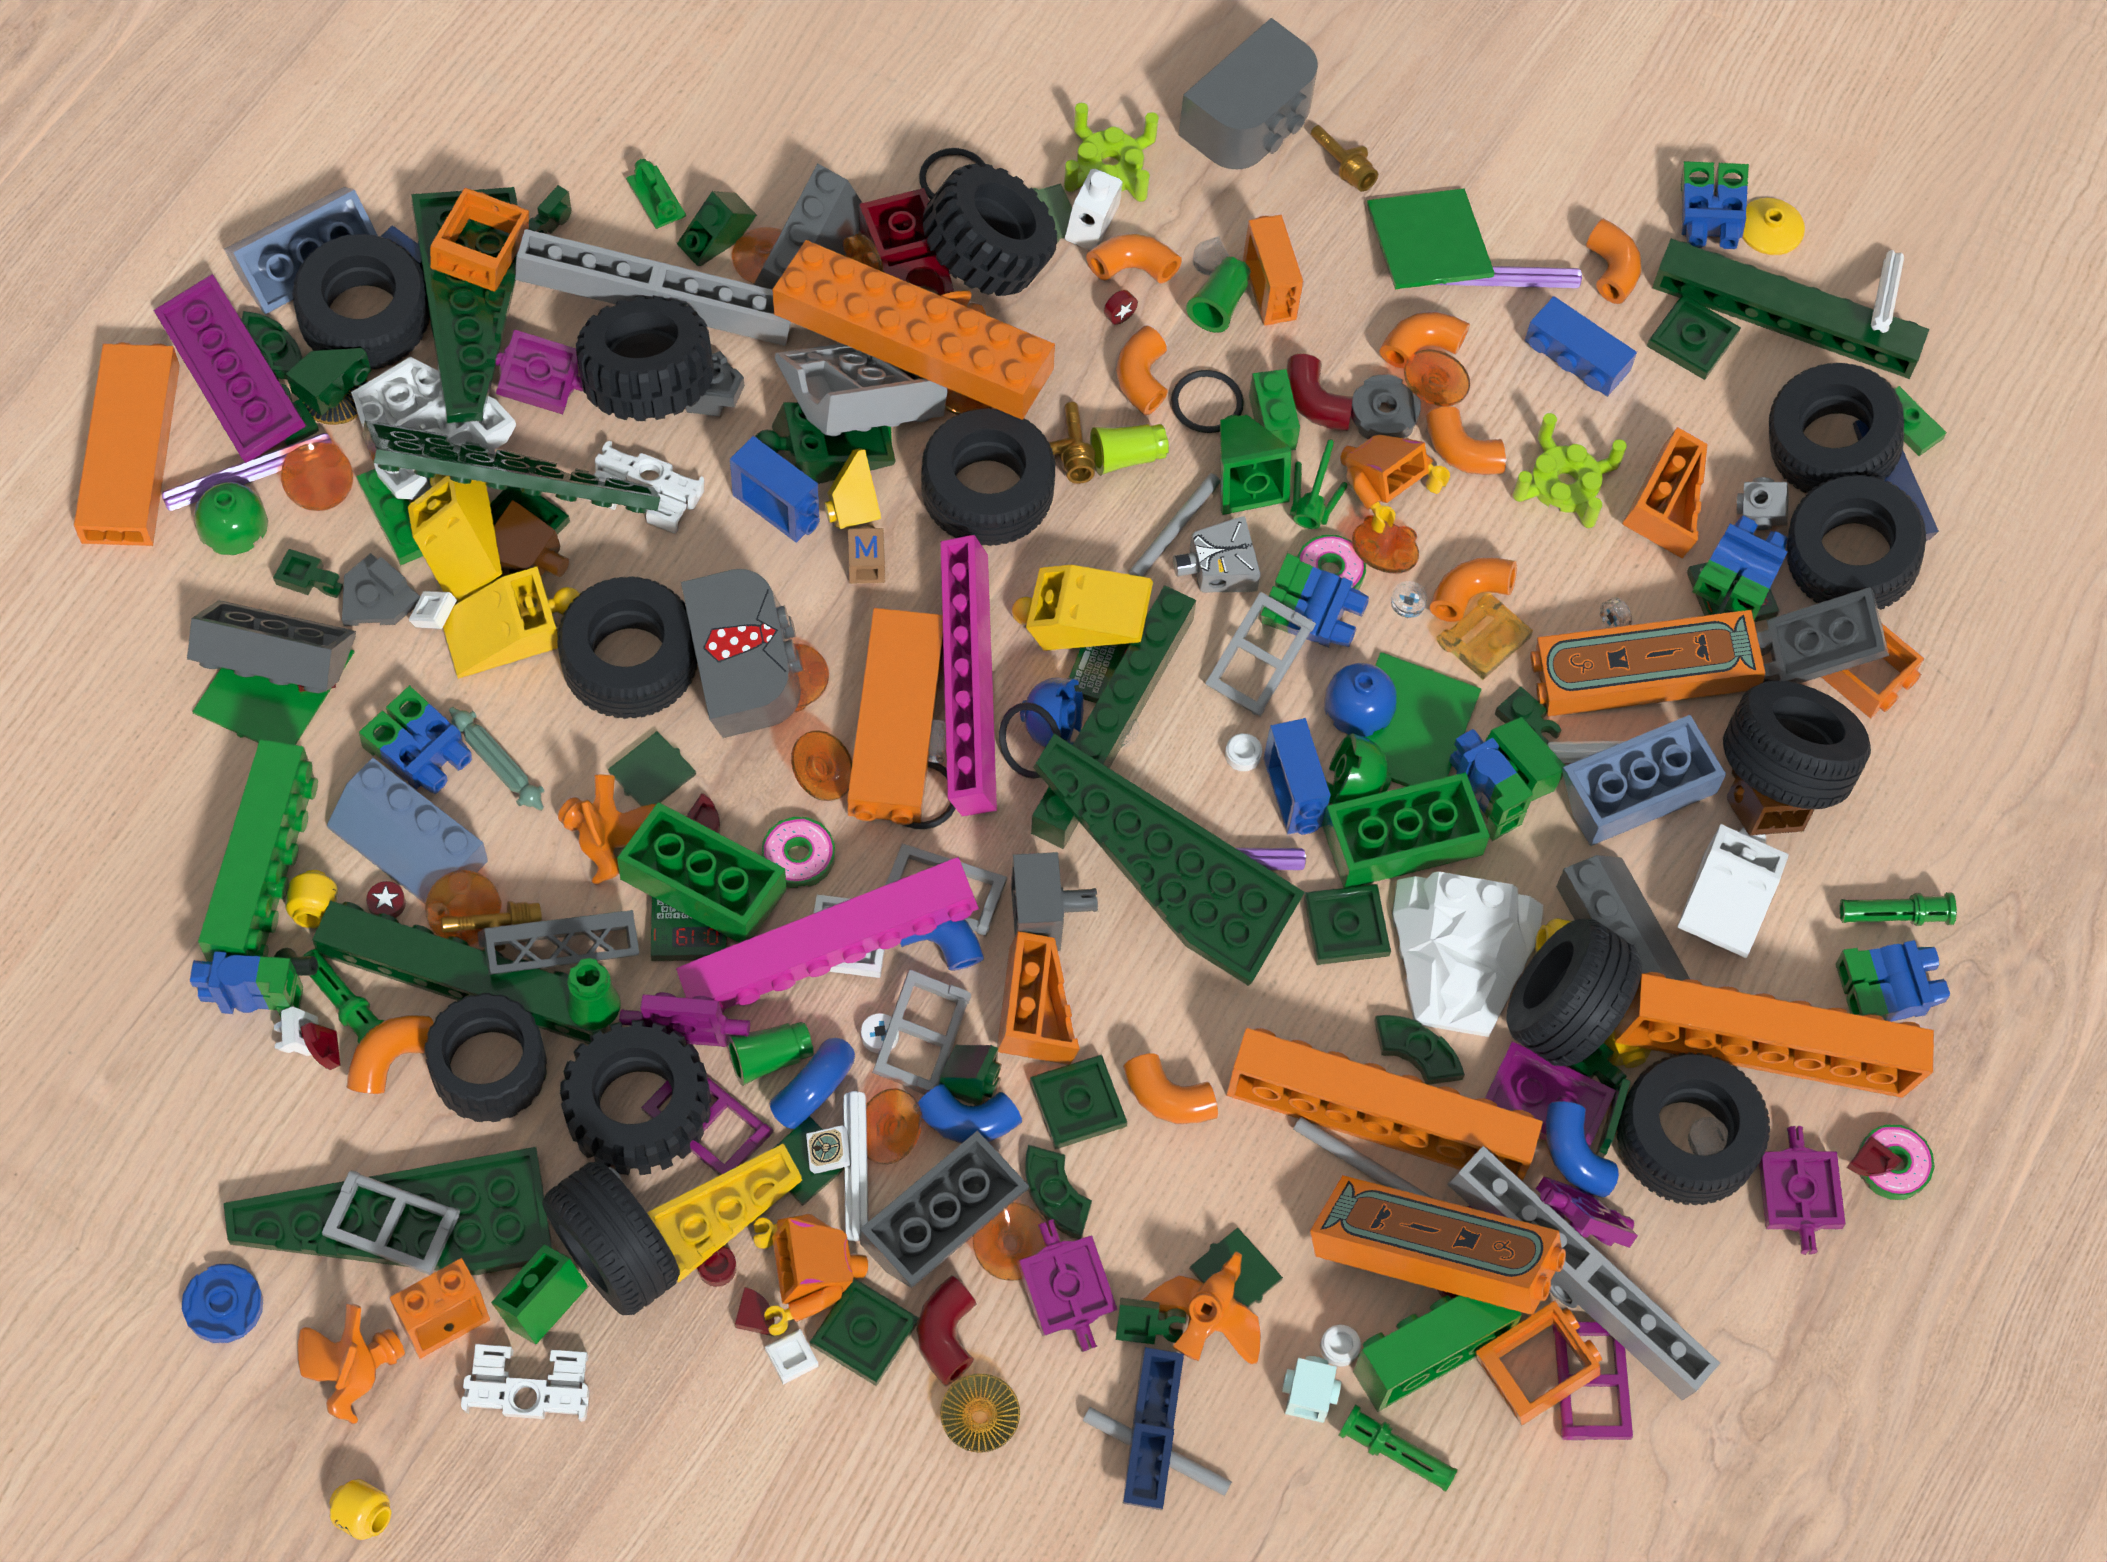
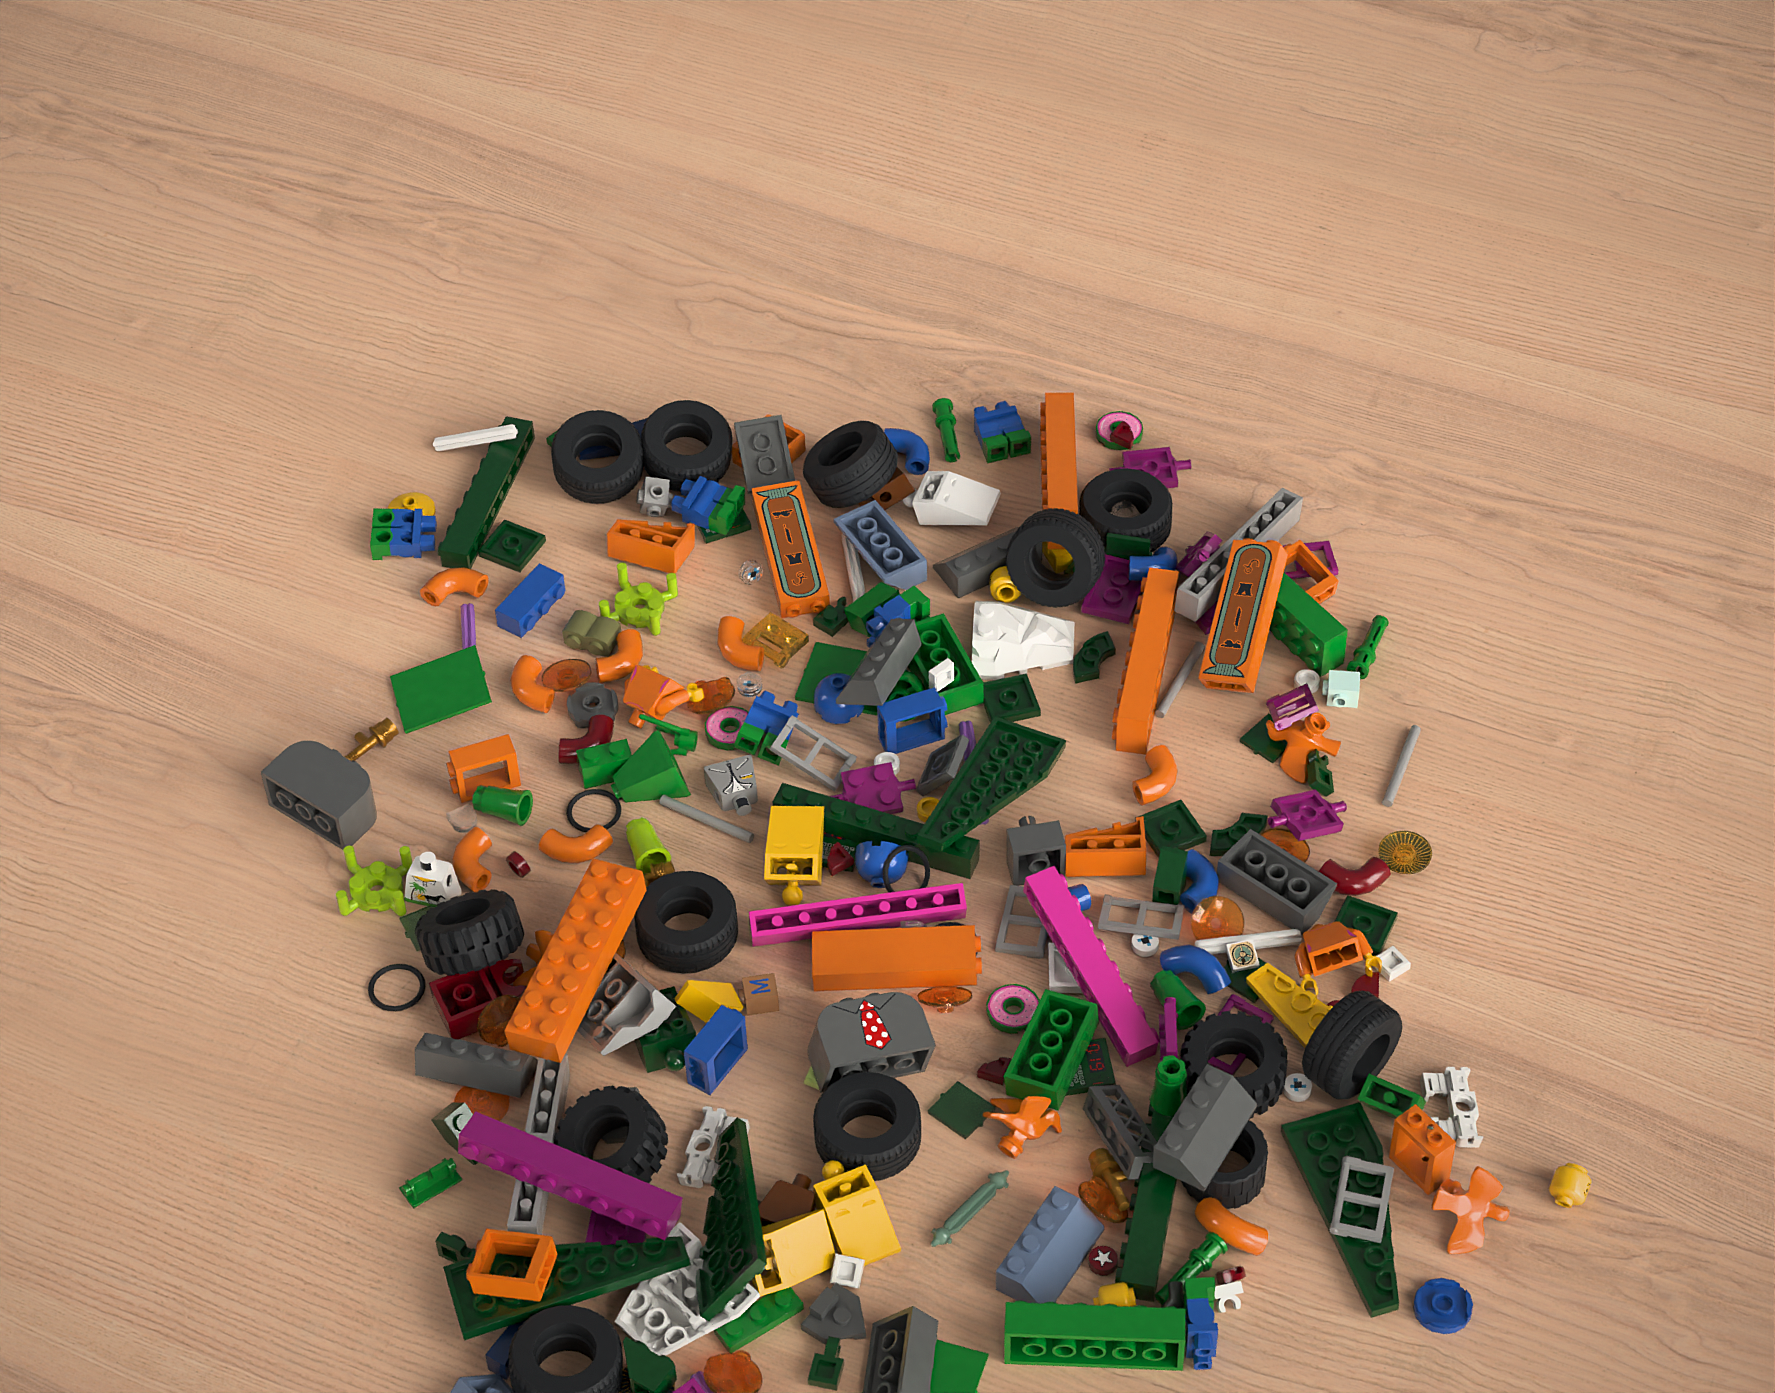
camera: 90 degrees left, 15 degrees down
(415, 741) = (966, 1259): blue hips -> none
(503, 1015) = (1204, 1128): none -> dark grey slope
(575, 293) = (570, 1175): none -> magenta brick
(1075, 666) = (838, 859): none -> dark red tile
(1153, 1428) = (1401, 761): dark blue slope -> none
(1159, 788) = (926, 807): none -> yellow tile
(1190, 724) = (874, 788): none -> magenta plate
(1214, 808) = (942, 765): none -> dark grey tile
(1306, 1325) = (1278, 700): none -> magenta window
(1354, 808) = (941, 675): none -> white tile
(1376, 733) = (882, 664): none -> dark grey slope
(1513, 413) = (591, 633): none -> olive brick
(1862, 853) = (912, 447): none -> blue cylinder

